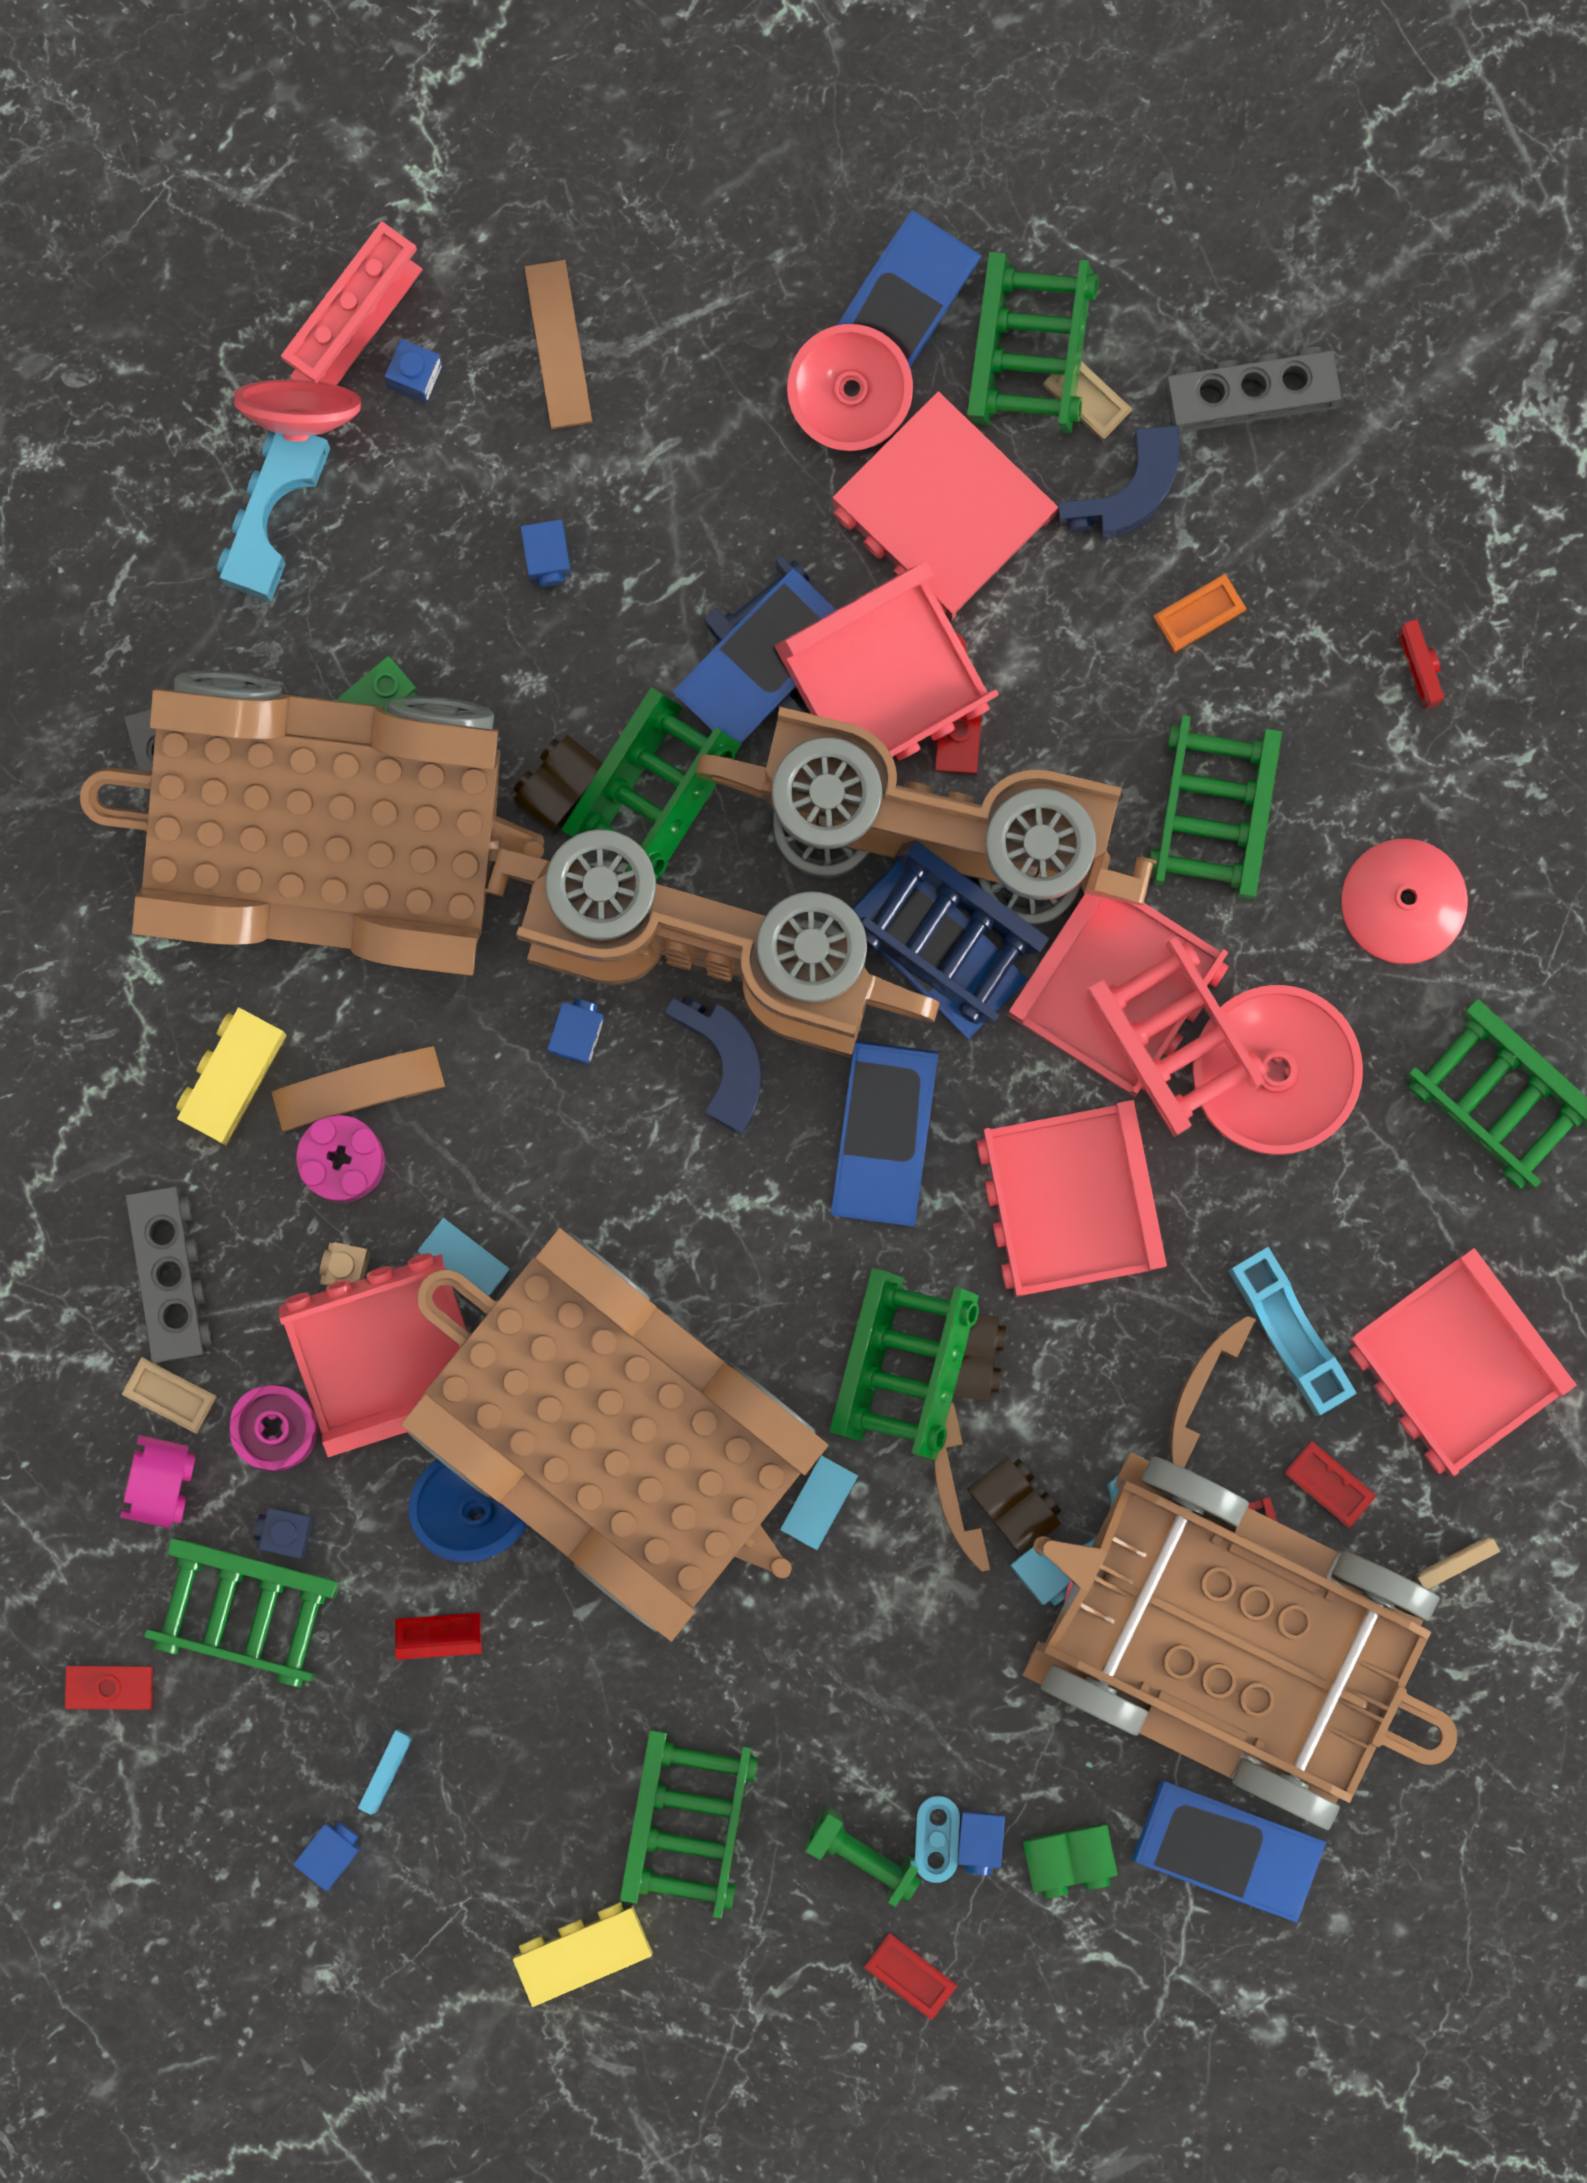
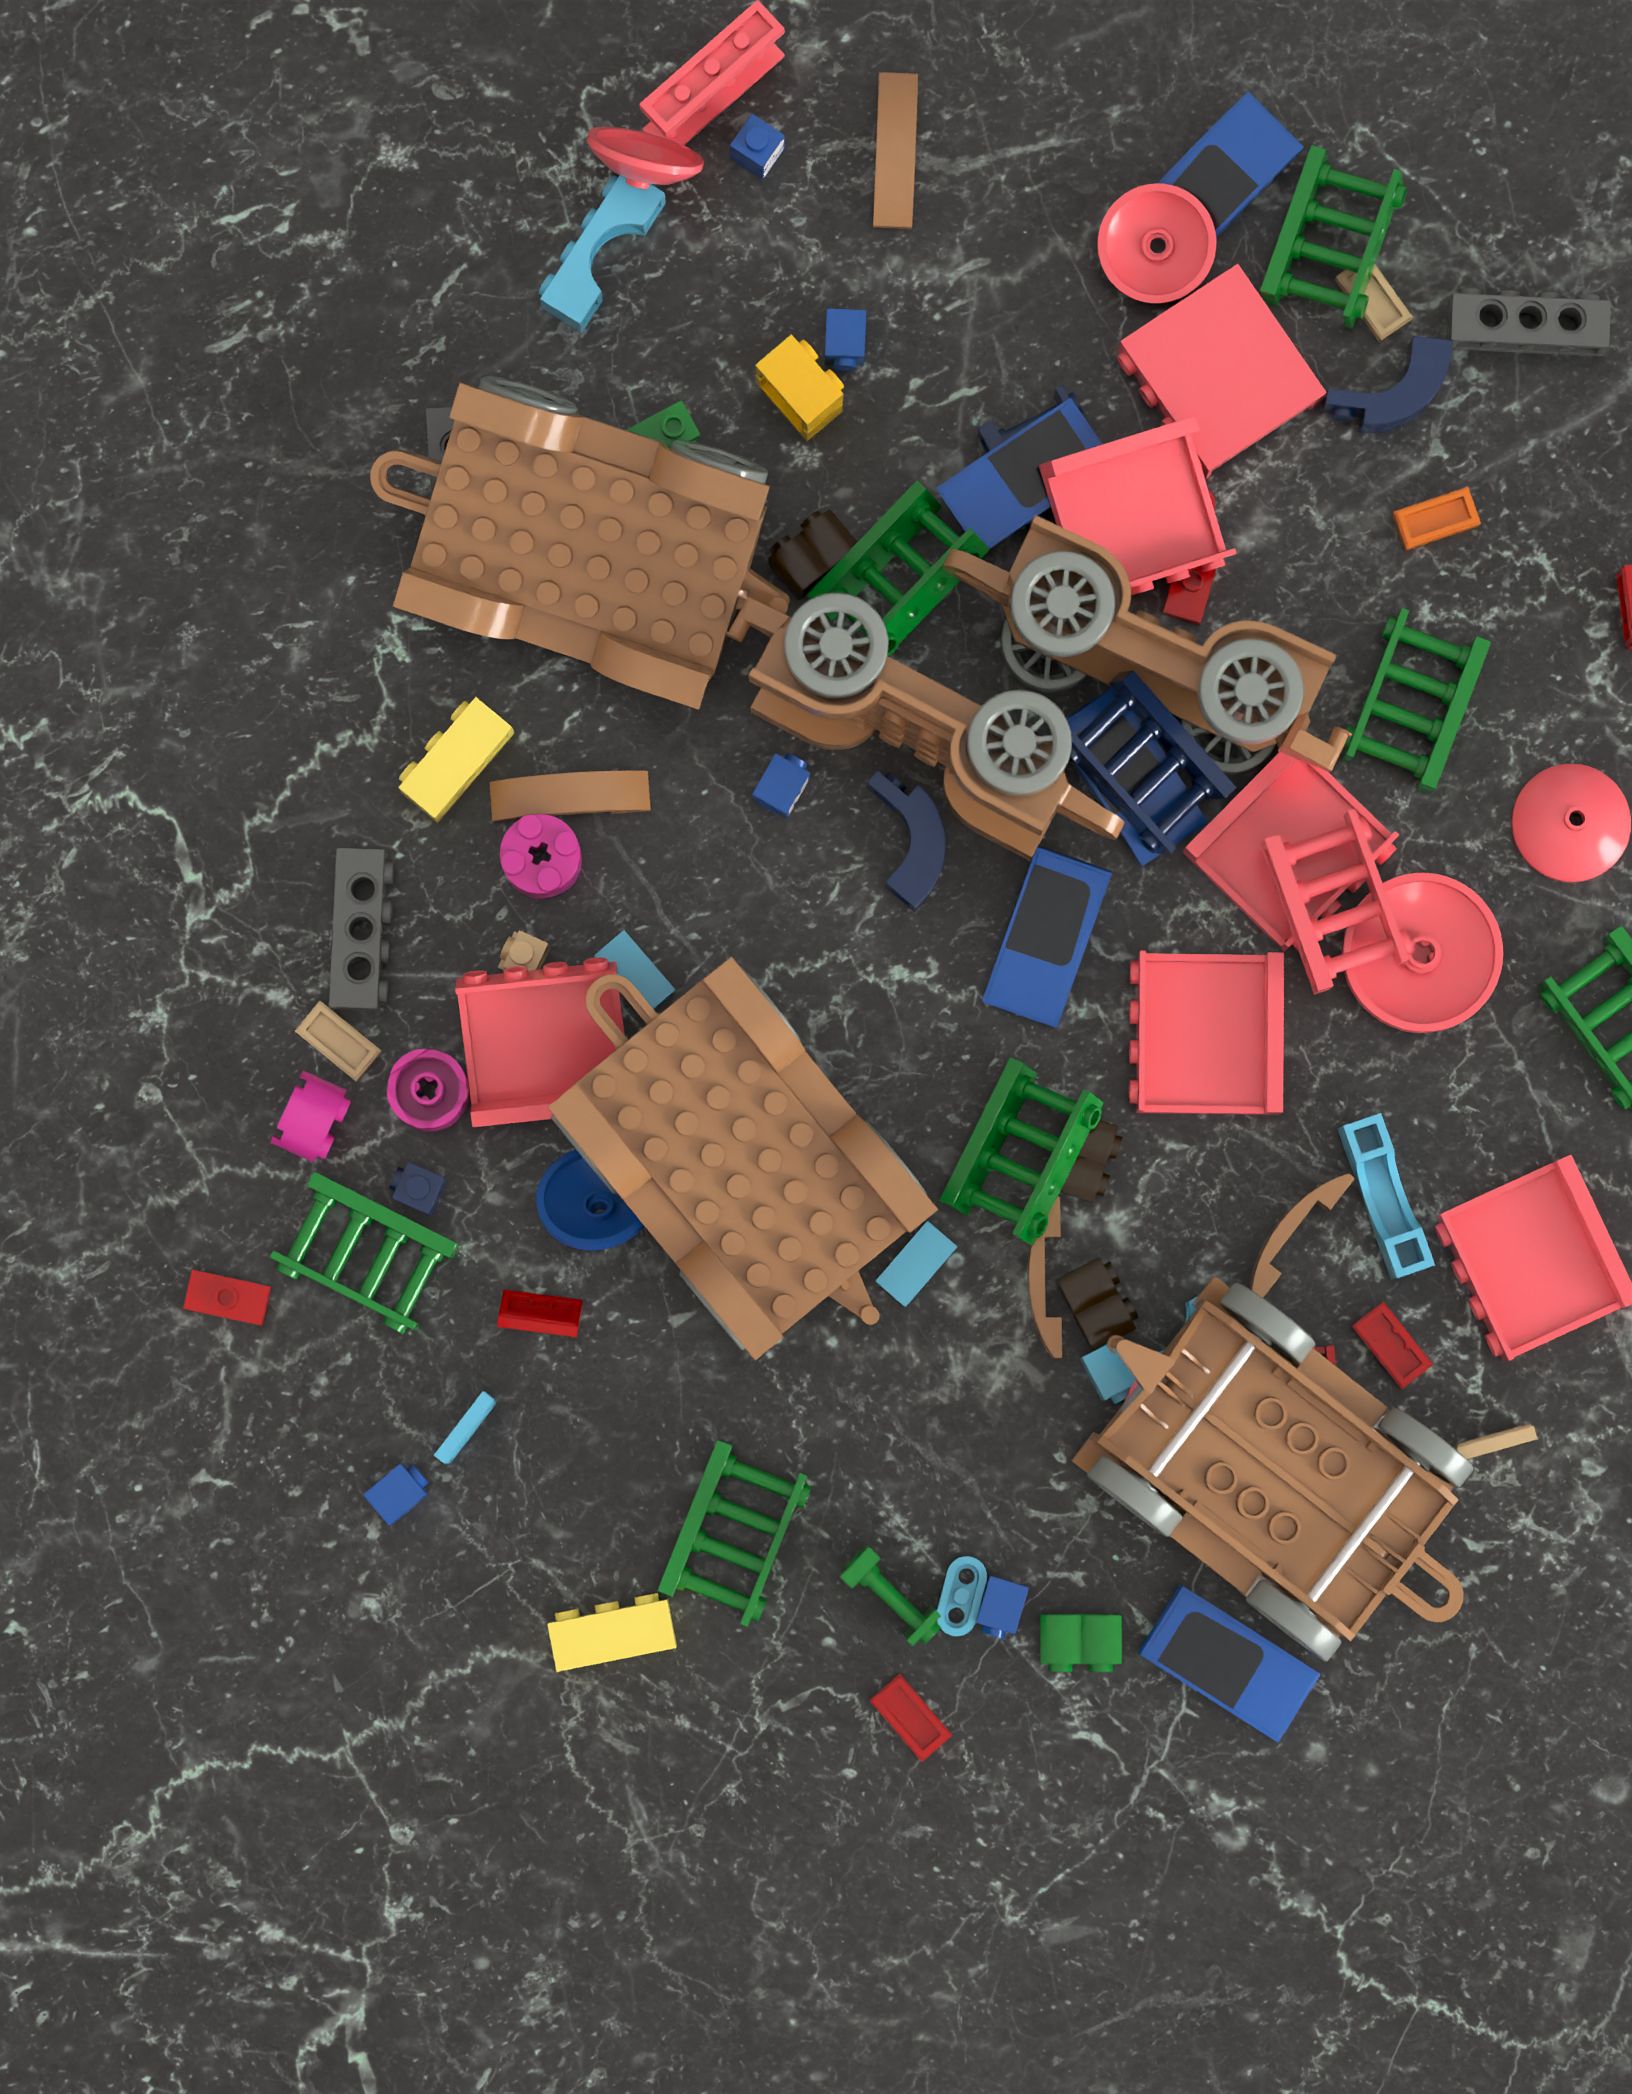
camera: 10 degrees right, 0 degrees up
(509, 613) = (800, 386): none -> yellow piece

